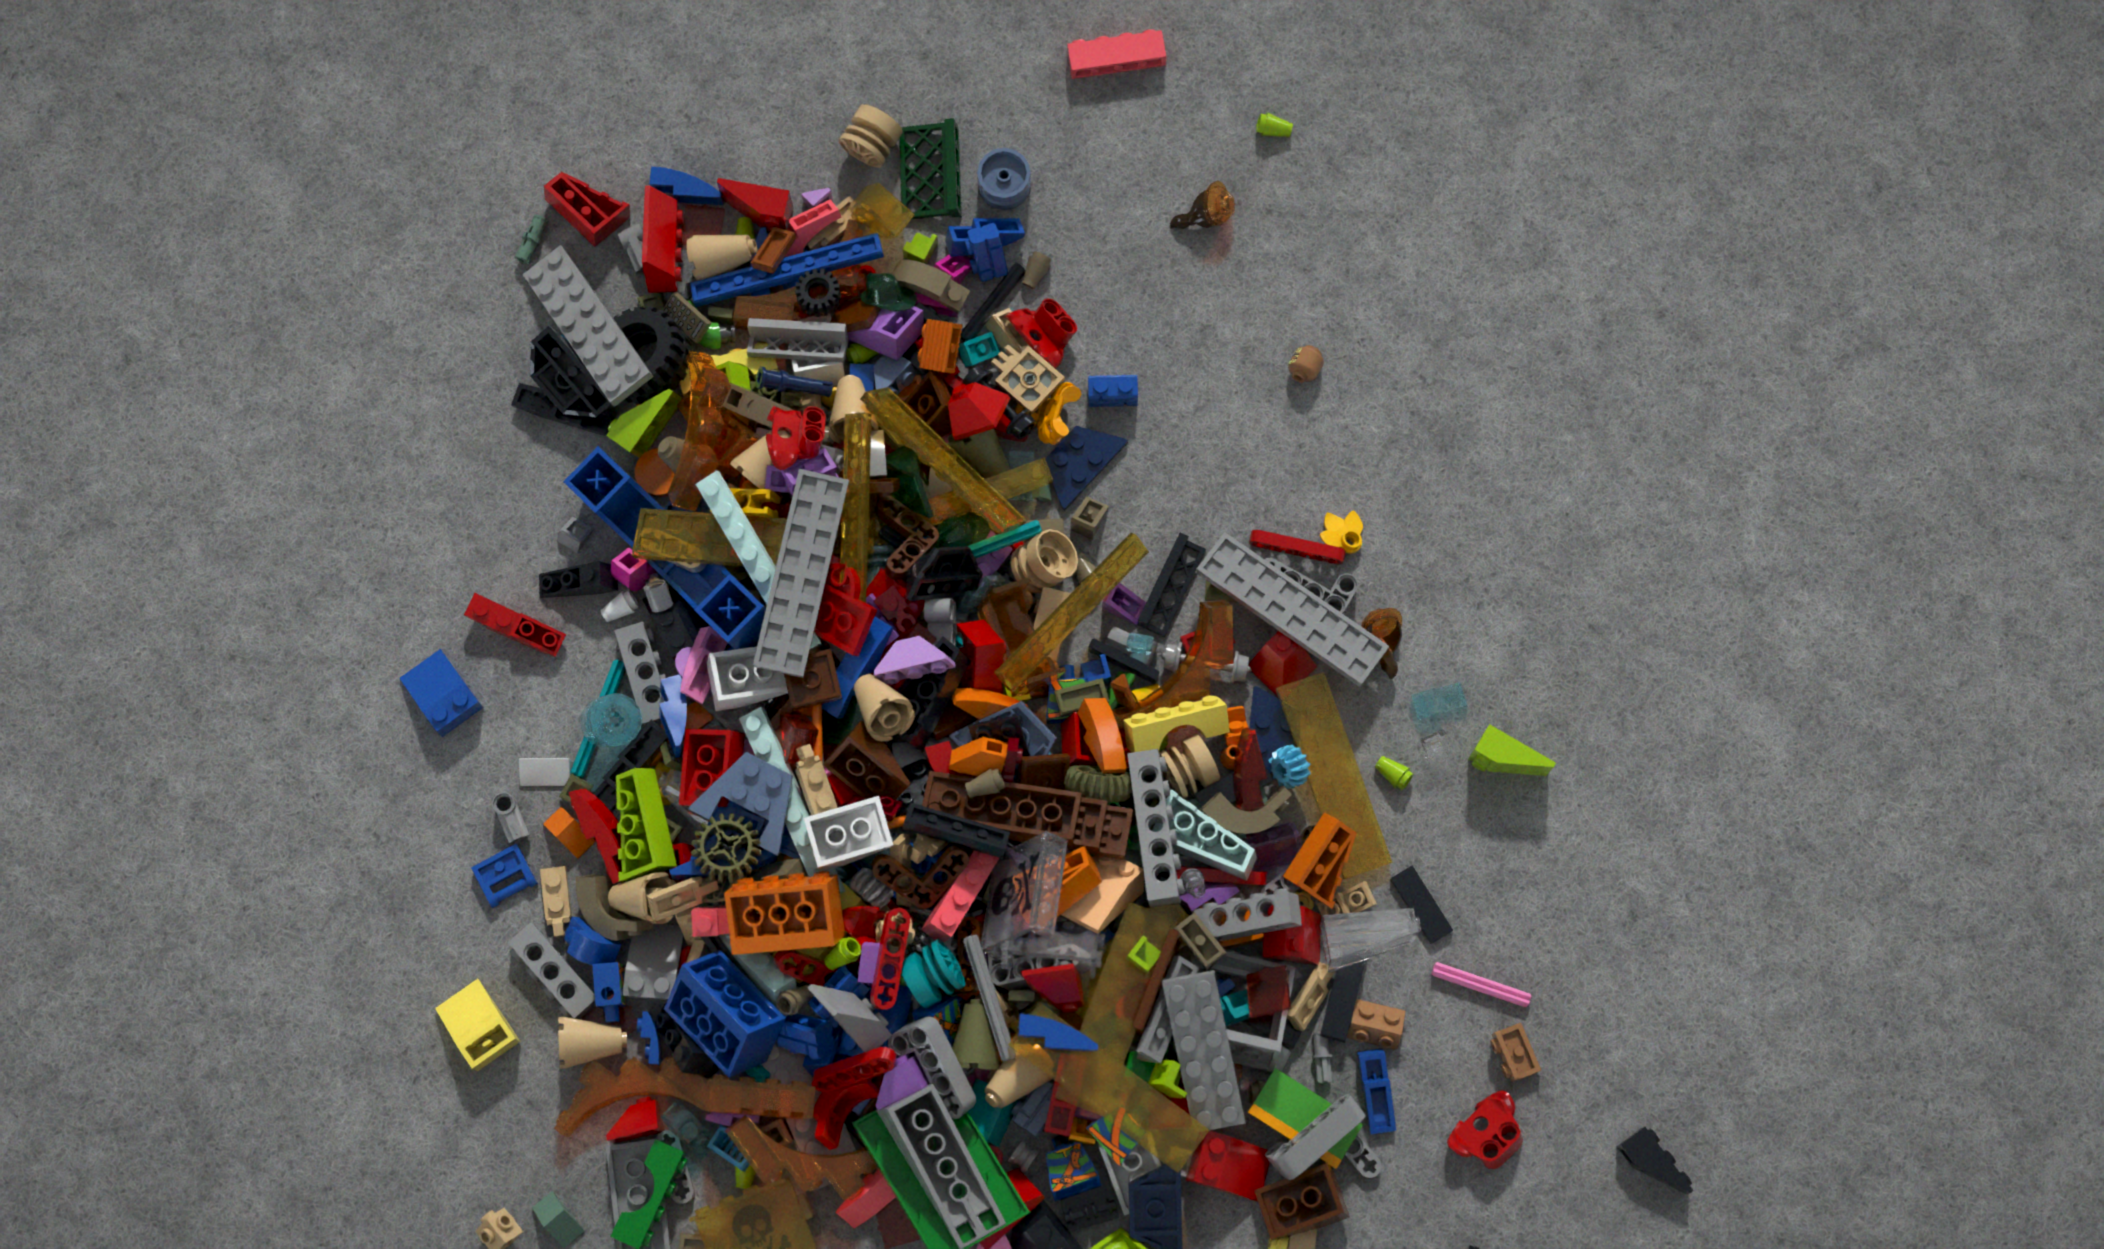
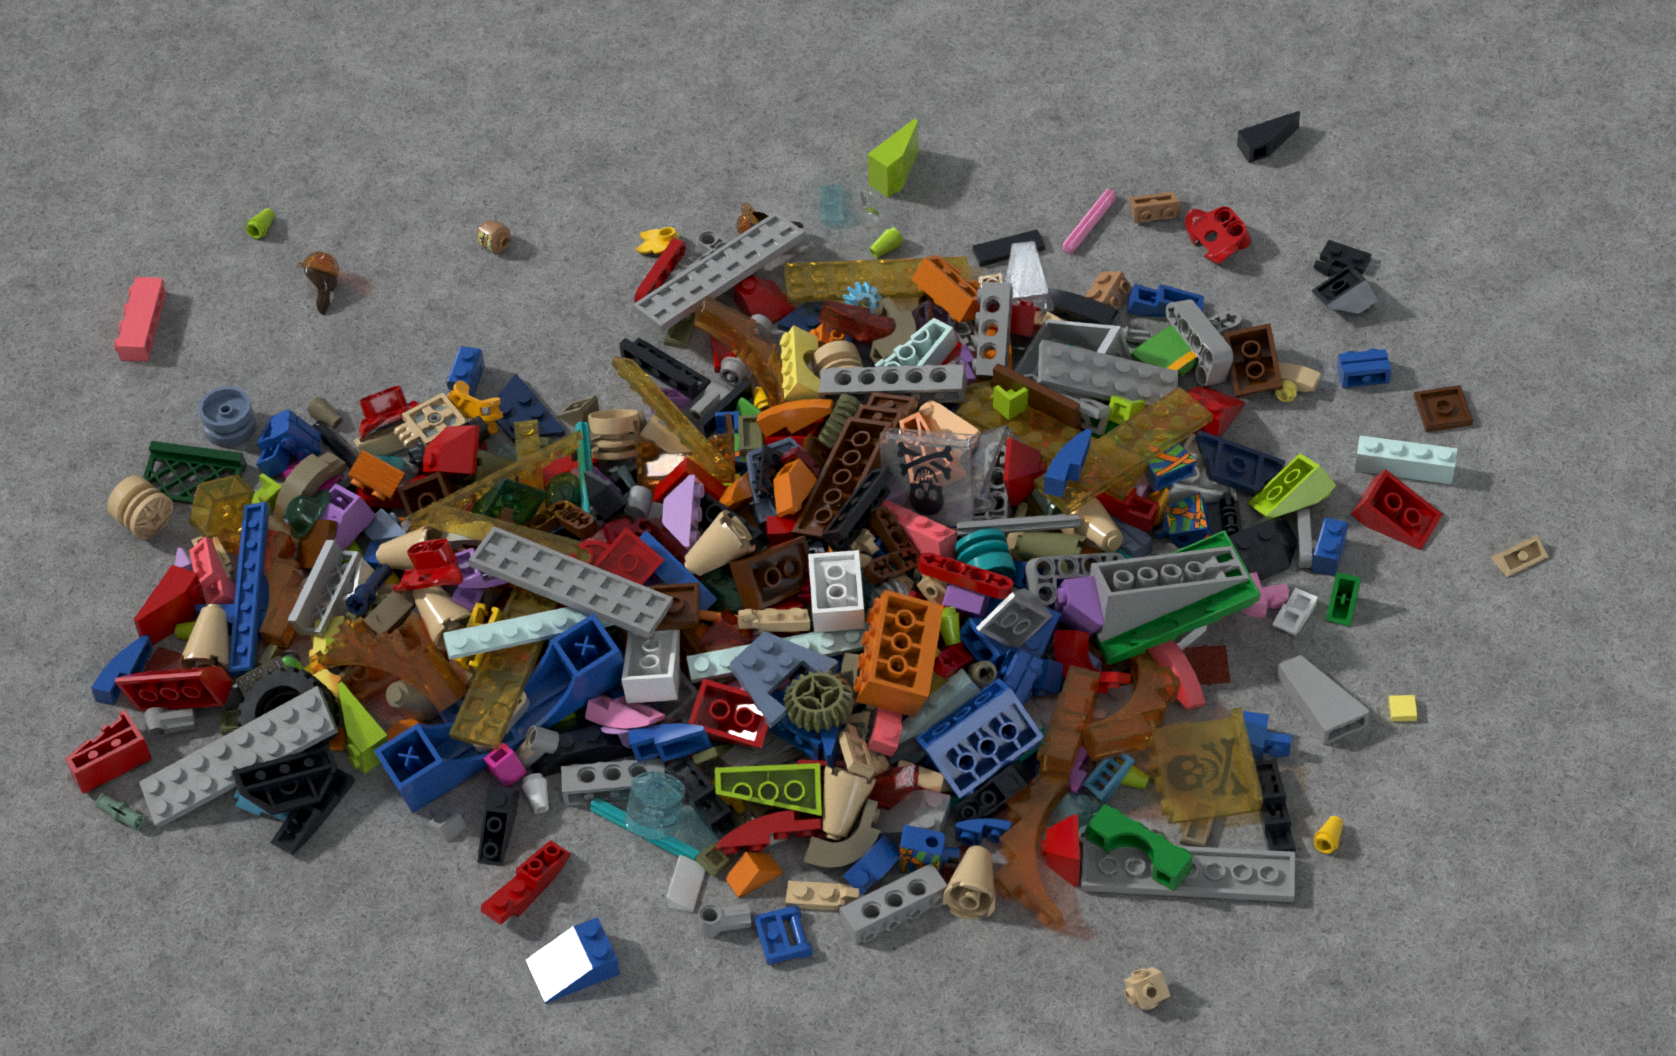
camera: 75 degrees left, 25 degrees down
(477, 1025) = (932, 977): light yellow slope -> none
(557, 1219) = (1143, 941): sand green slope -> none
(667, 942) = (894, 786): none -> clear red slope
(773, 250) = (225, 593): dark orange tile -> none
(820, 305) = (289, 568): black tyre -> none
(832, 1076) = (1060, 634): red beam -> none
(987, 783) = (819, 479): dark tan cone -> none
(1123, 691) = (757, 398): dark orange slope -> none
(1140, 643) = (715, 385): clear light blue slope -> none
(1200, 941) = (1016, 361): dark tan slope -> none
(1268, 991) = (1064, 331): clear red piece -> none

